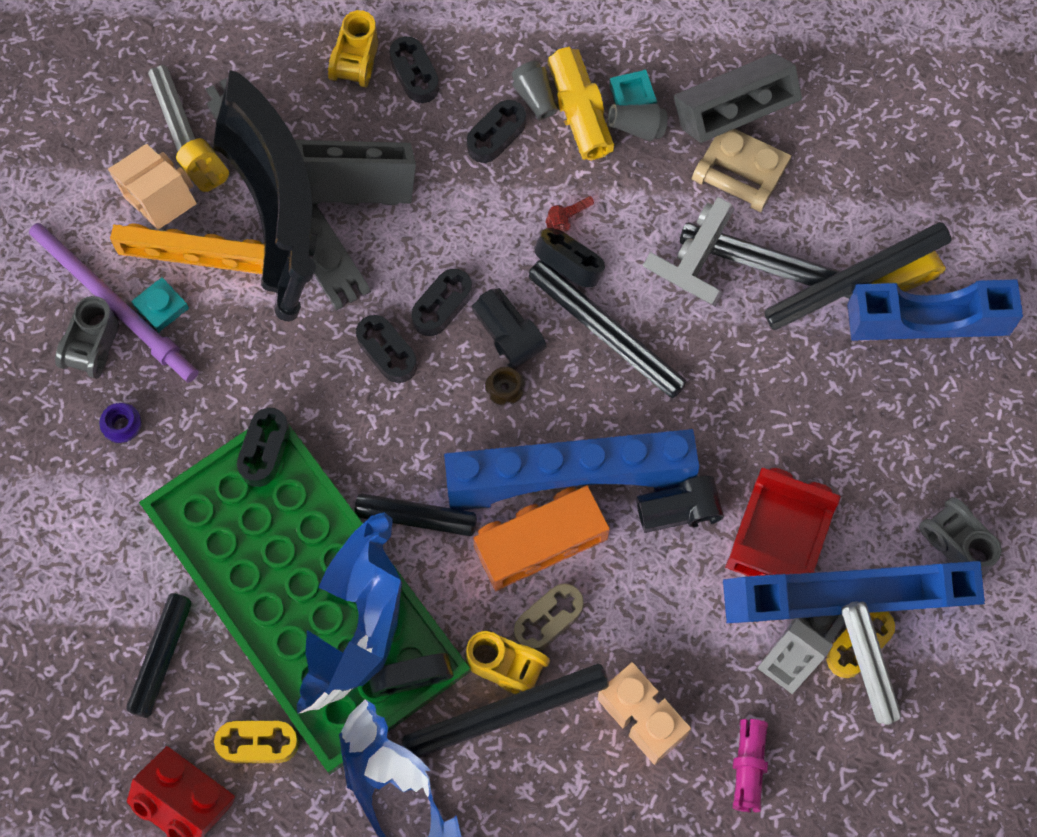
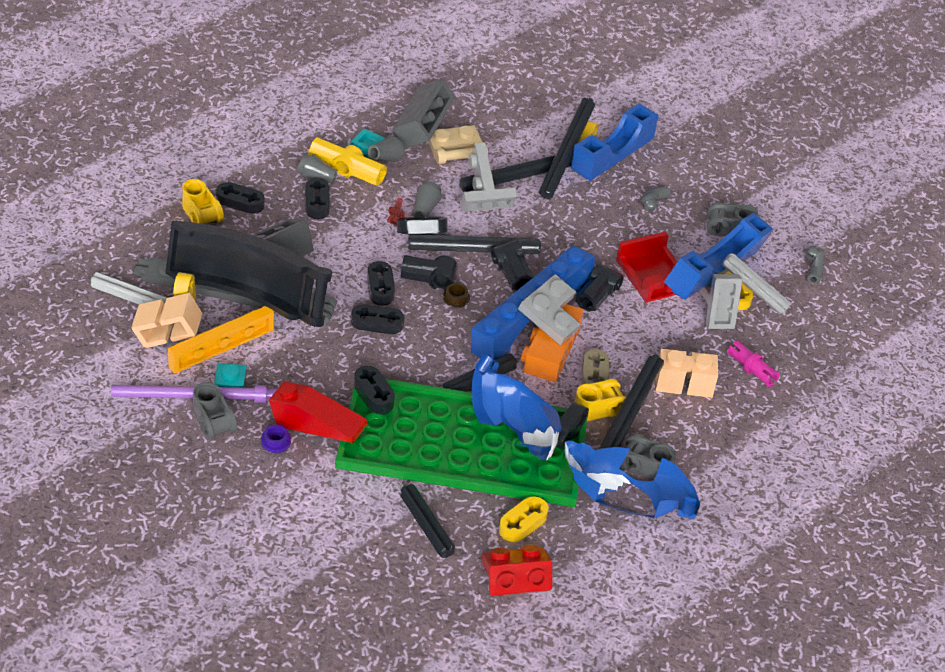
camera: 50 degrees left, 25 degrees down
(172, 430) = (311, 412): none -> red slope
(467, 779) = (646, 455): none -> dark grey piece
(547, 494) = (546, 310): none -> light grey plate
(613, 224) = (426, 198): none -> dark grey cone
(615, 384) = (512, 263): none -> black piece
(901, 421) = (652, 195): none -> dark grey arm
(1004, 694) = (817, 266): none -> dark grey arm

